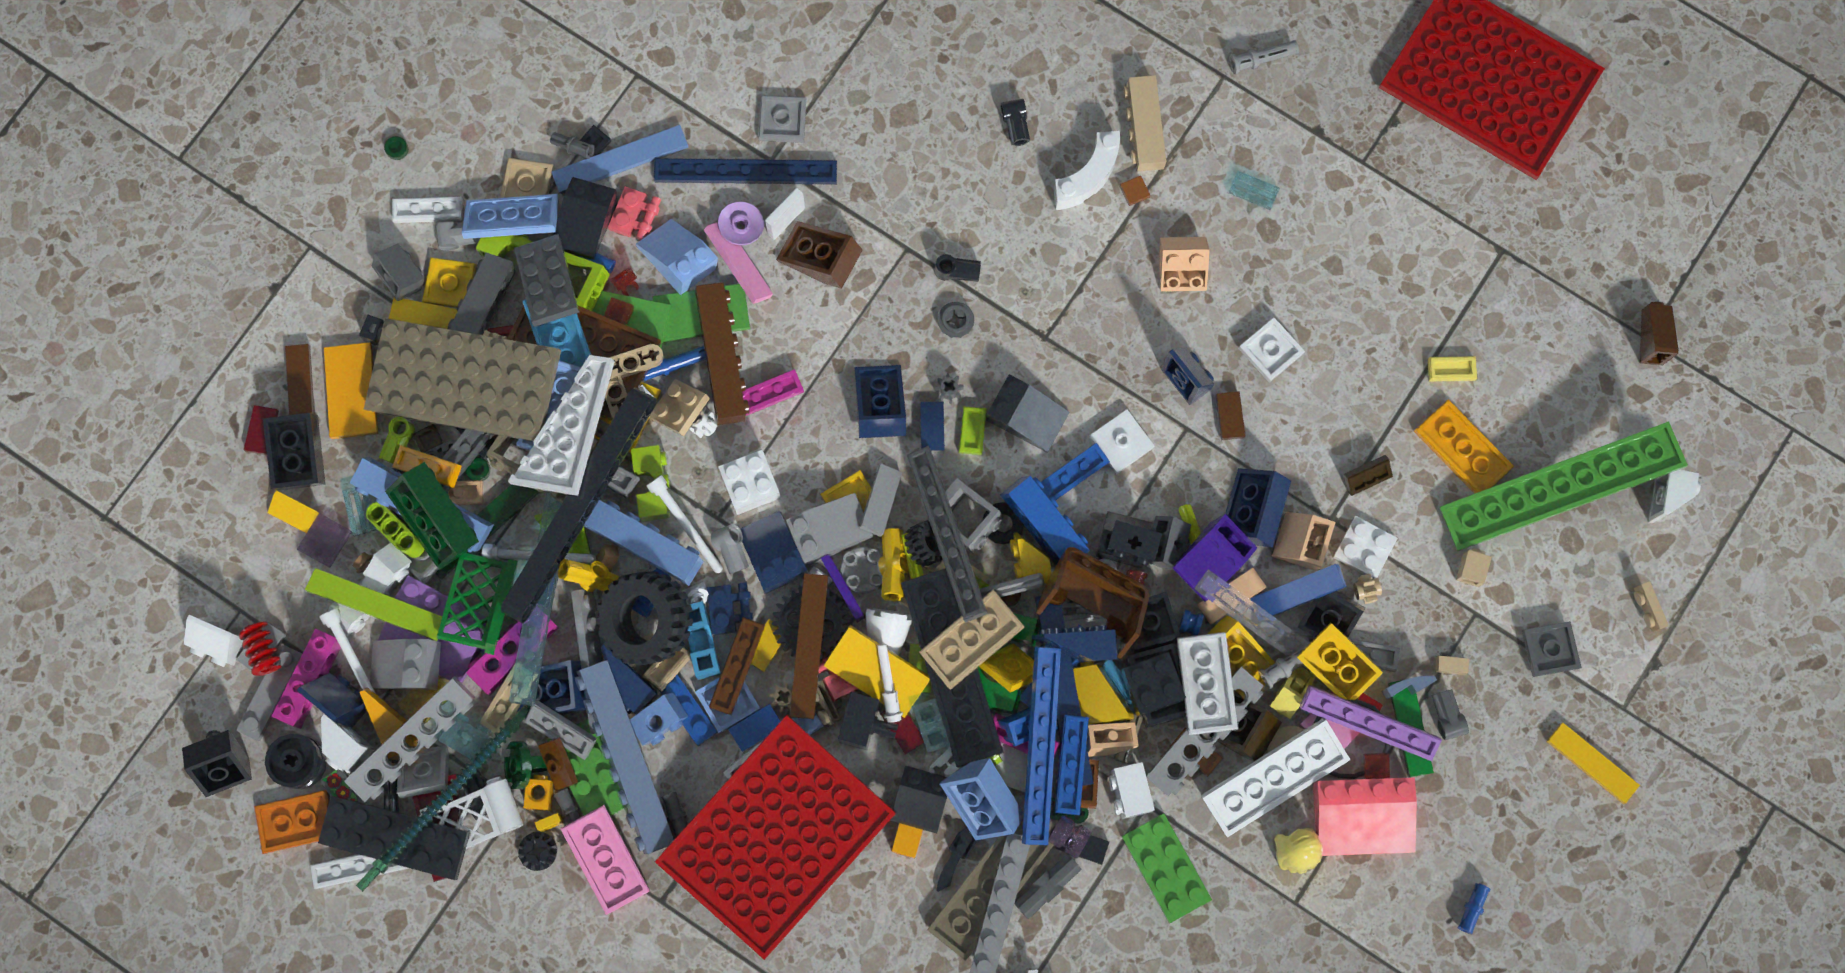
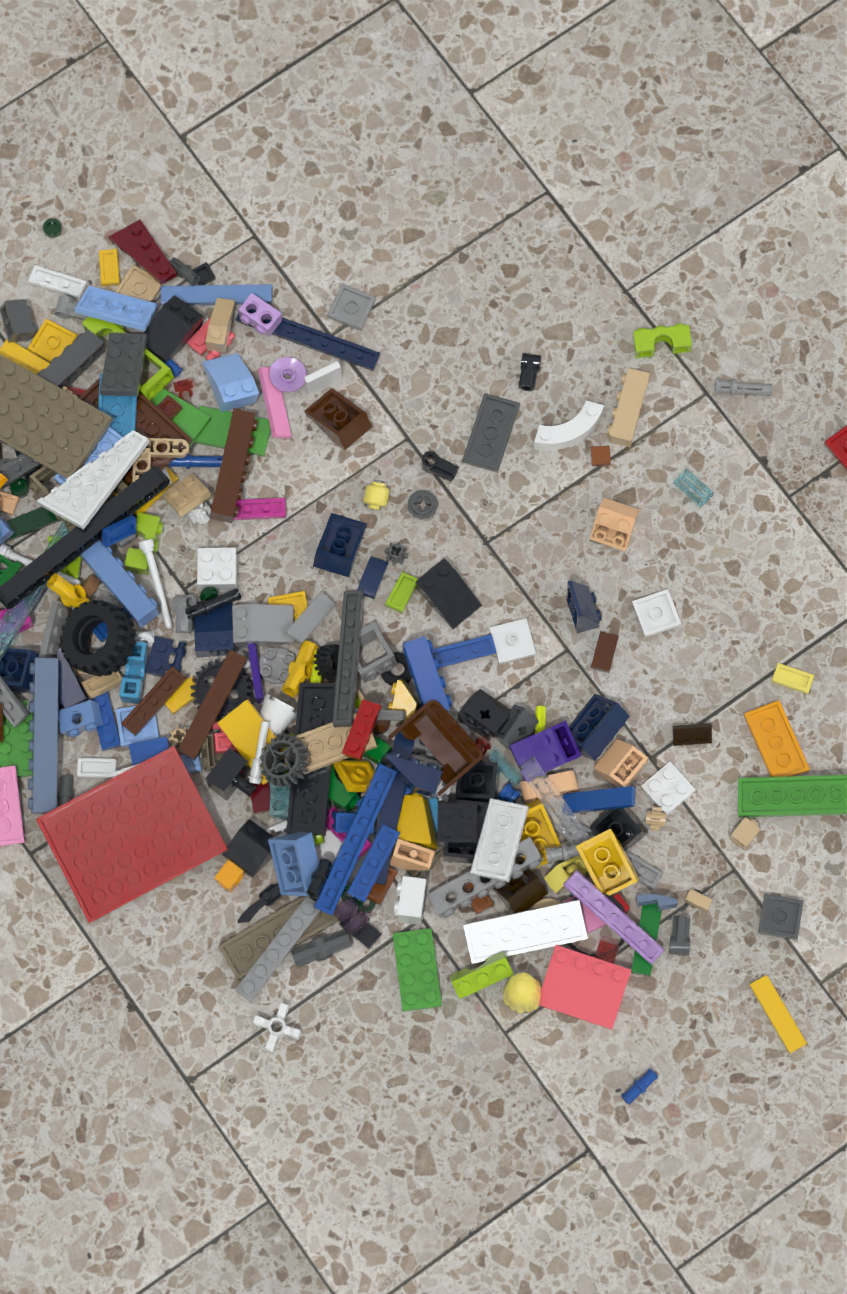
camera: 25 degrees right, 5 degrees down
(481, 171) = (109, 267): none -> yellow tile
(511, 134) = (143, 250): none -> dark red wing
(619, 480) = (118, 531): none -> blue tile
(640, 193) = (220, 325): none -> tan slope
(684, 160) = (263, 312): none -> lavender brick
(699, 769) = (96, 768): none -> white tile
(752, 516) = (208, 593): none -> dark green plate
(755, 531) = (205, 607): none -> black pin
(899, 328) = (376, 495): none -> light yellow head
(932, 666) = (274, 764): none -> dark grey gear
(1000, 208) = (491, 432): none -> dark grey tile
(1000, 614) = (361, 729): none -> red plate
(1018, 808) = (319, 878): none -> black pin
(1167, 23) = (676, 336): none -> lime arch
(1174, 594) = (505, 769): none -> clear light blue tile
(1237, 861) = (470, 981): none -> lime arch

